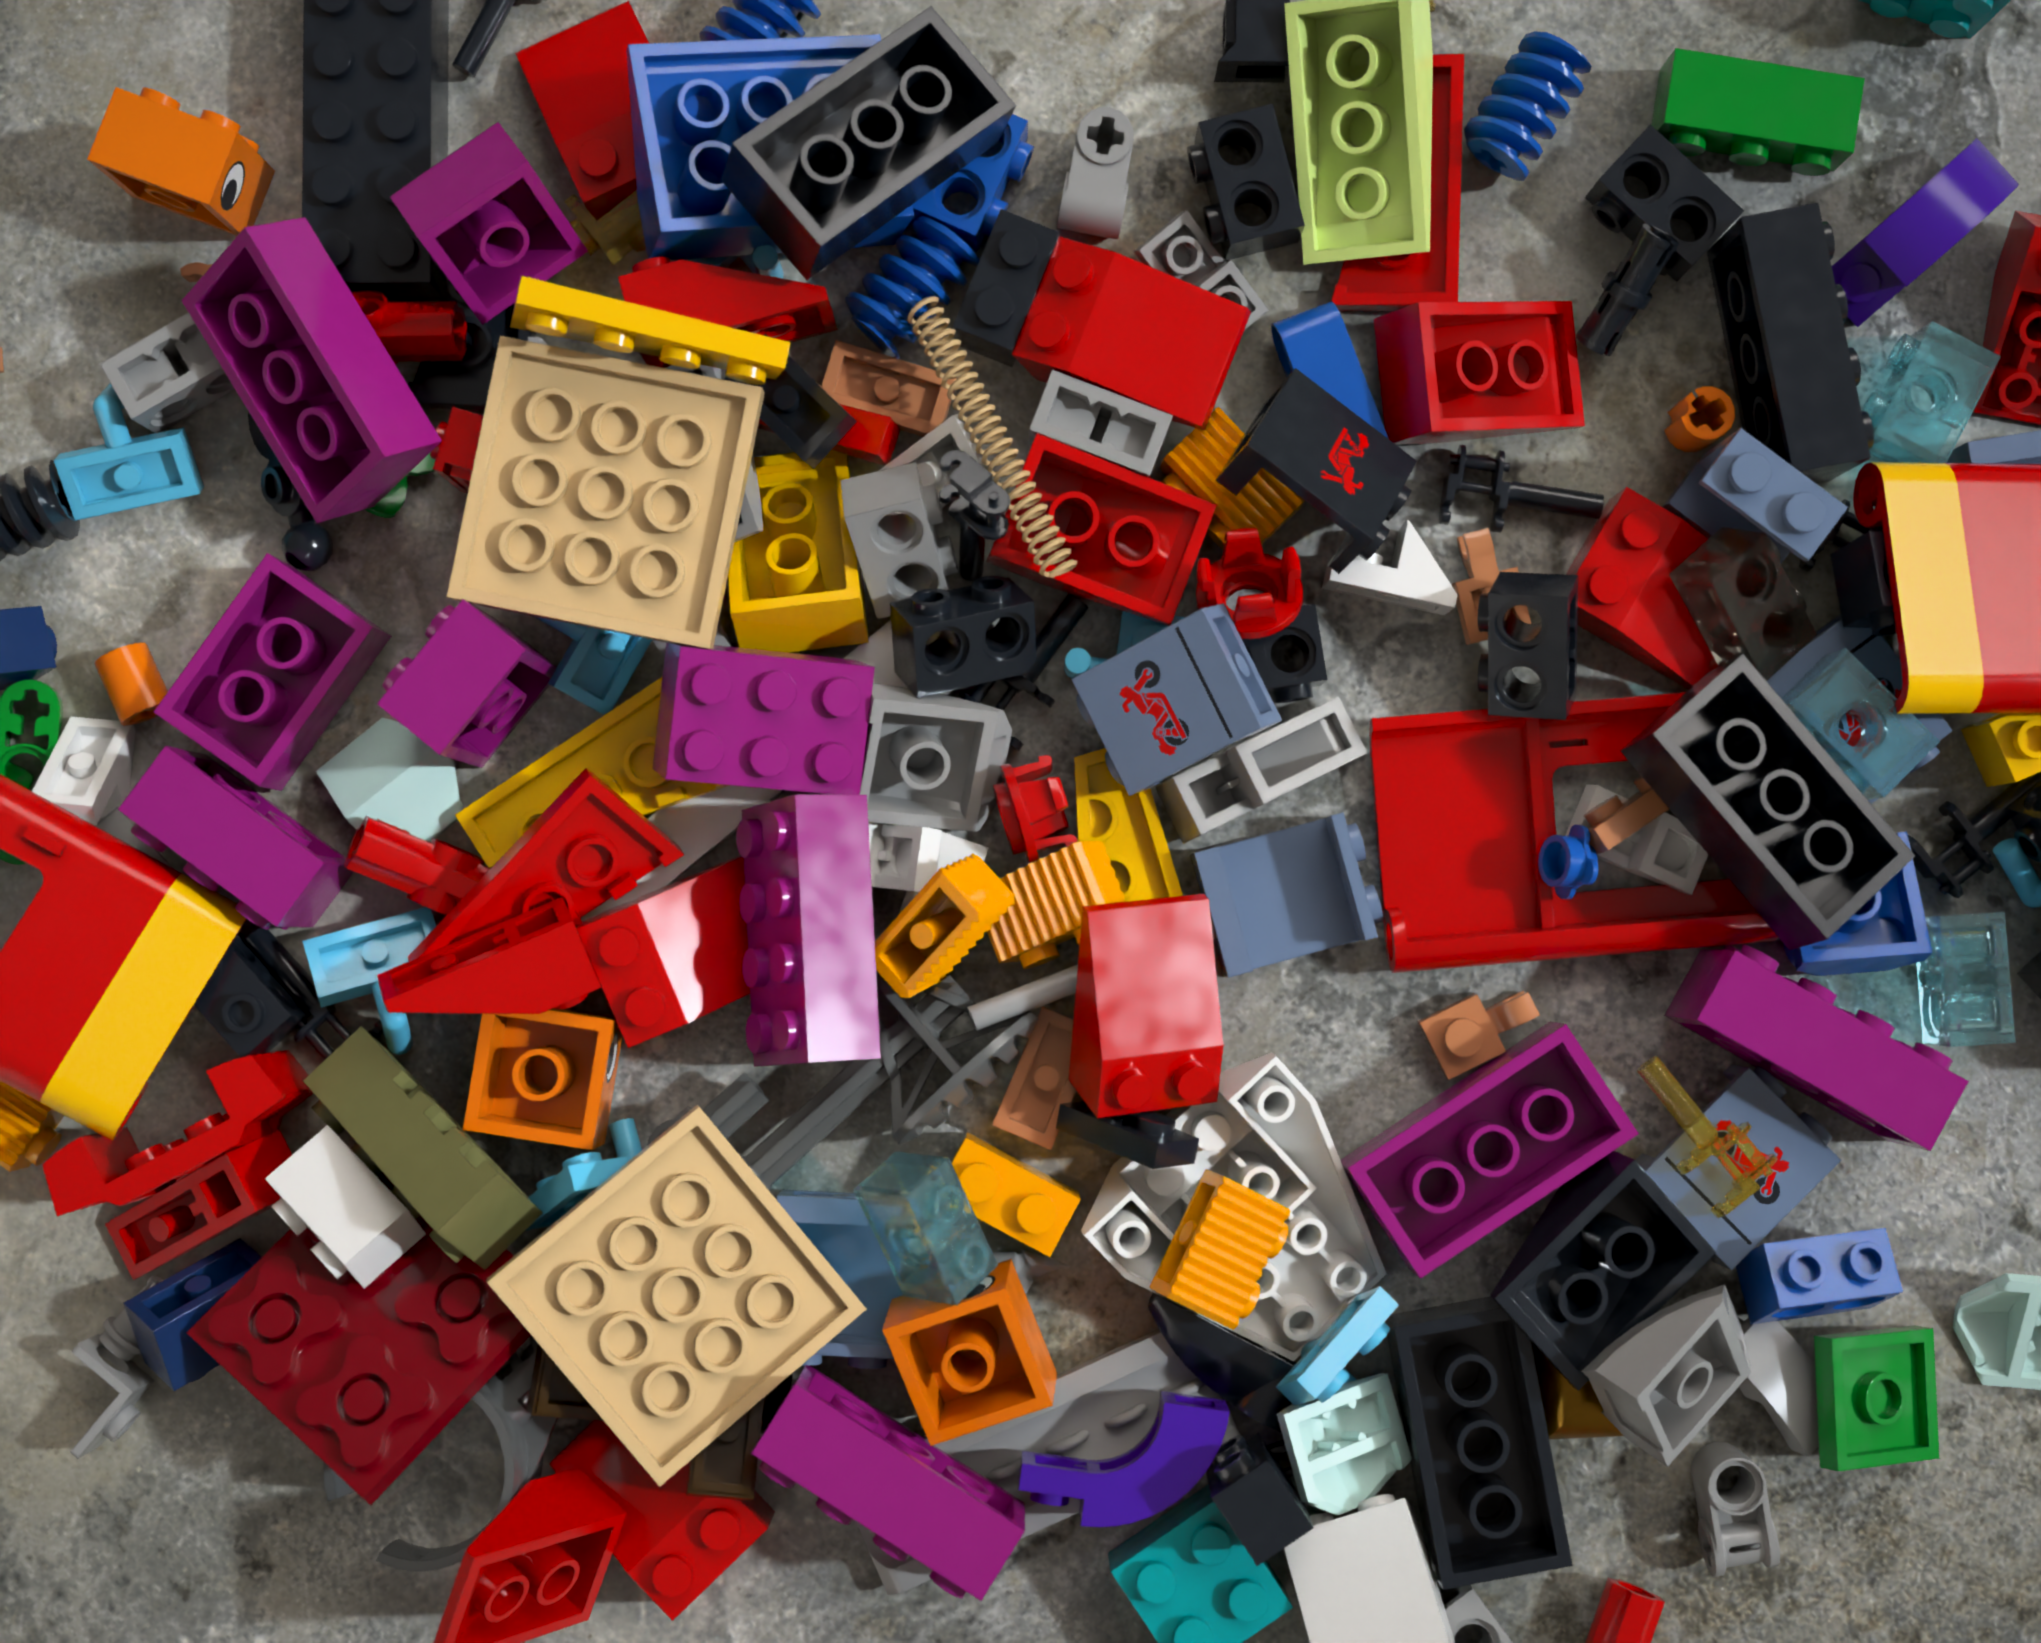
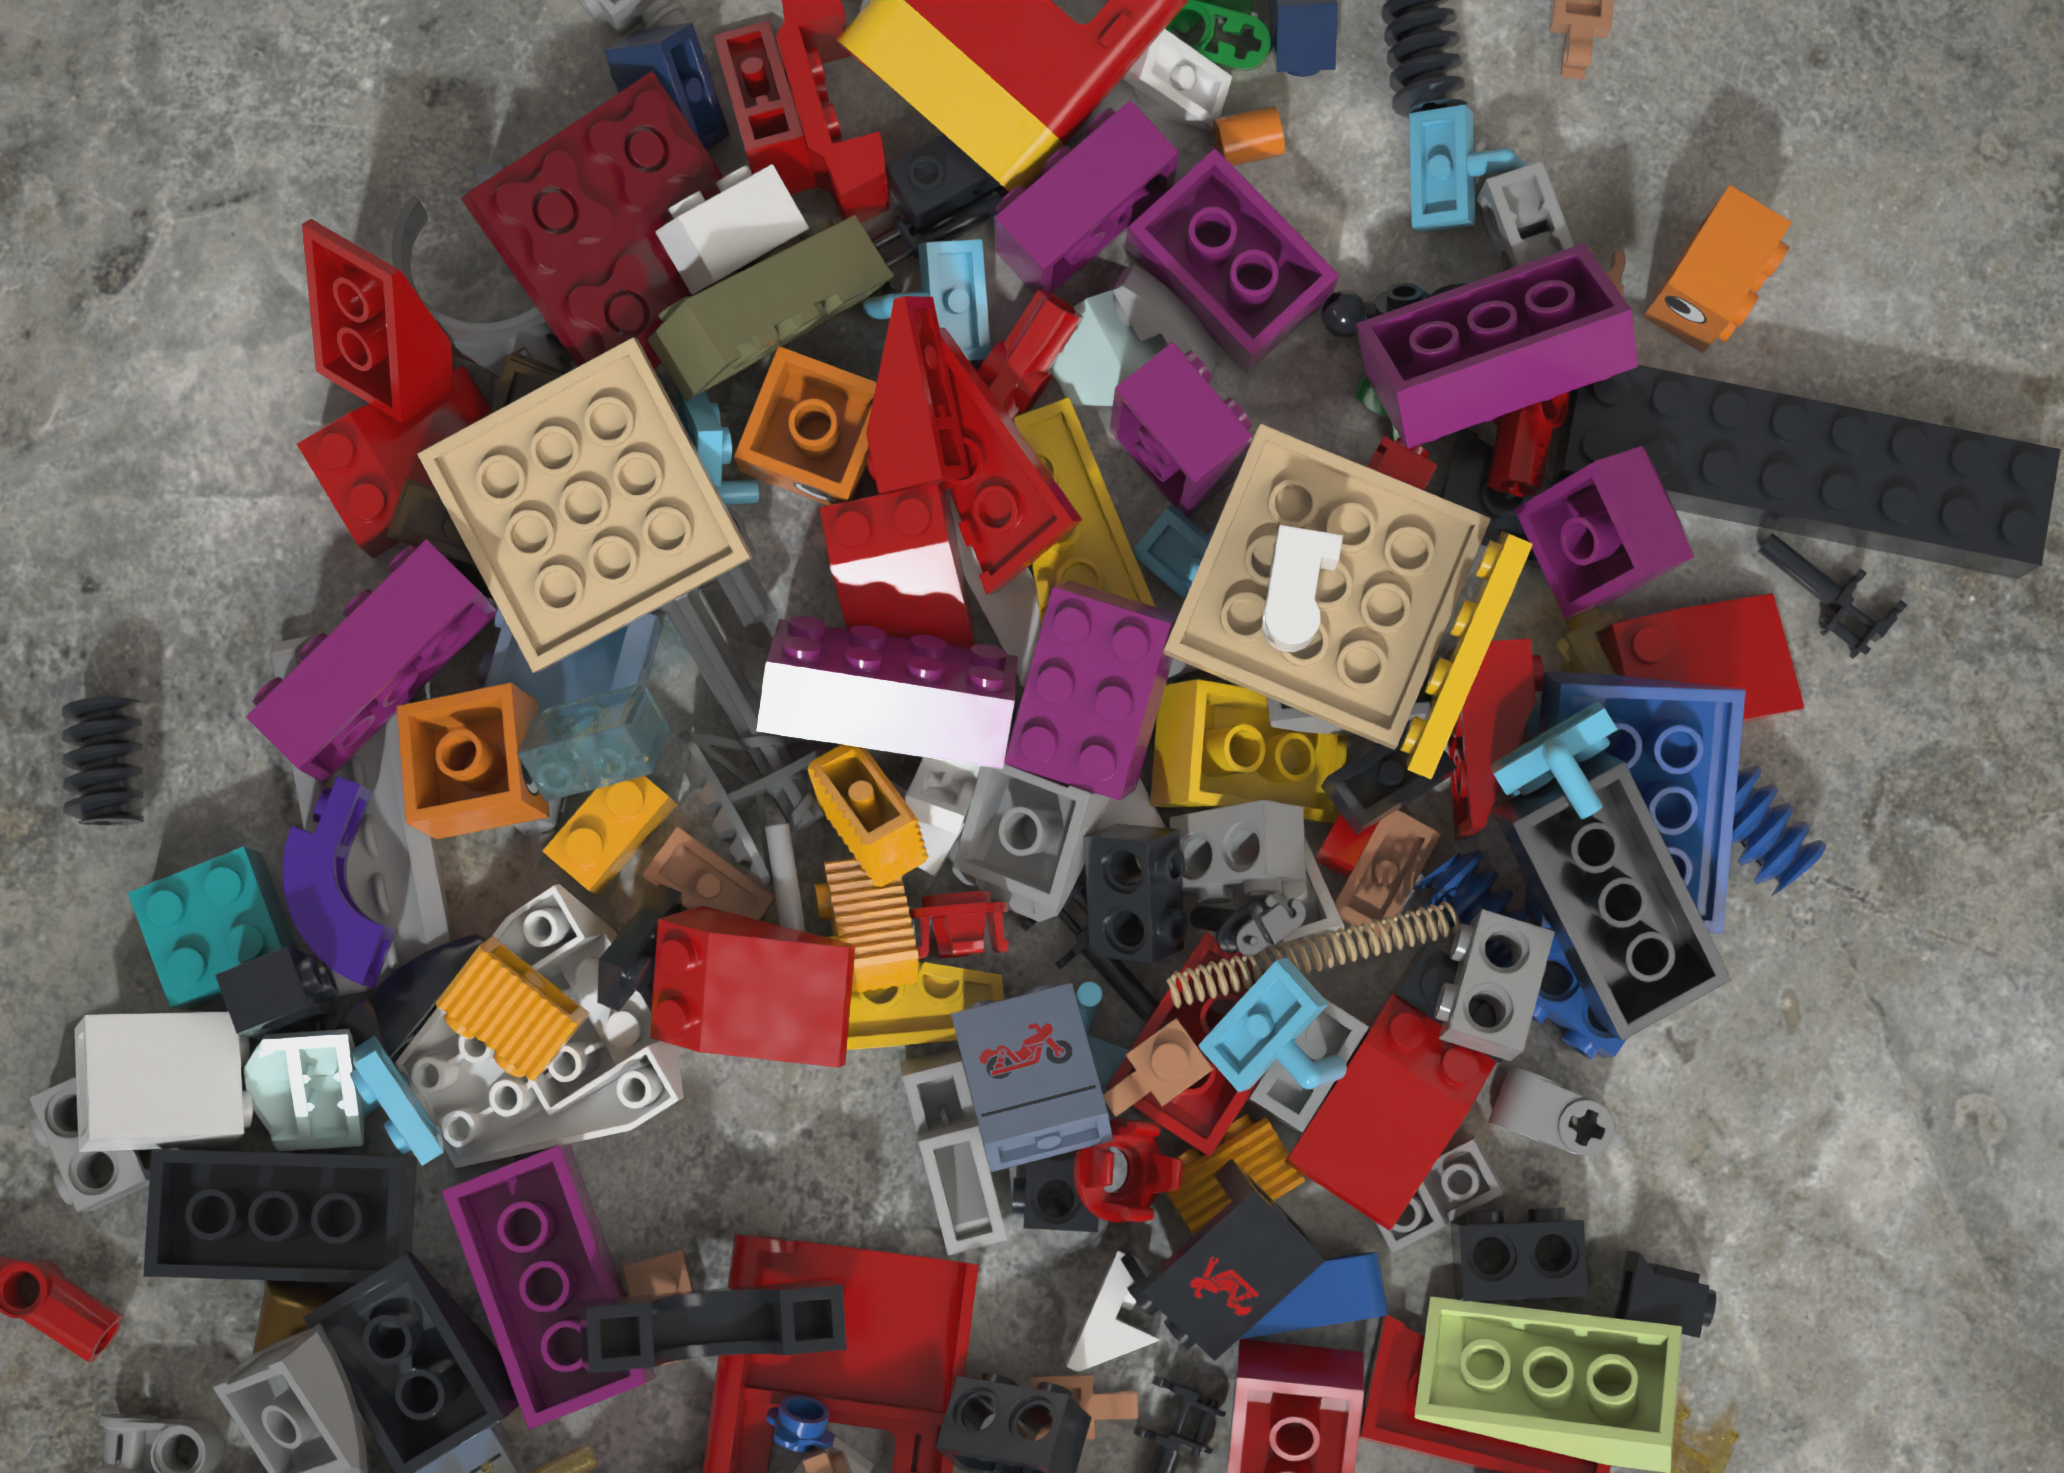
camera: 100 degrees right, 5 degrees down
(344, 738) = (1155, 309): none -> light grey slope
(630, 524) = (1290, 608): none -> white leg
(730, 215) = (1552, 756): none -> medium azure plate
(989, 228) = (1508, 990): none -> light grey brick
(1078, 466) = (1265, 1030): none -> medium azure plate
(1137, 568) = (1162, 1064): none -> nougat plate
(1287, 894) = (831, 1148): sand blue panel -> none
(1513, 1022) = (711, 1322): none -> black arch

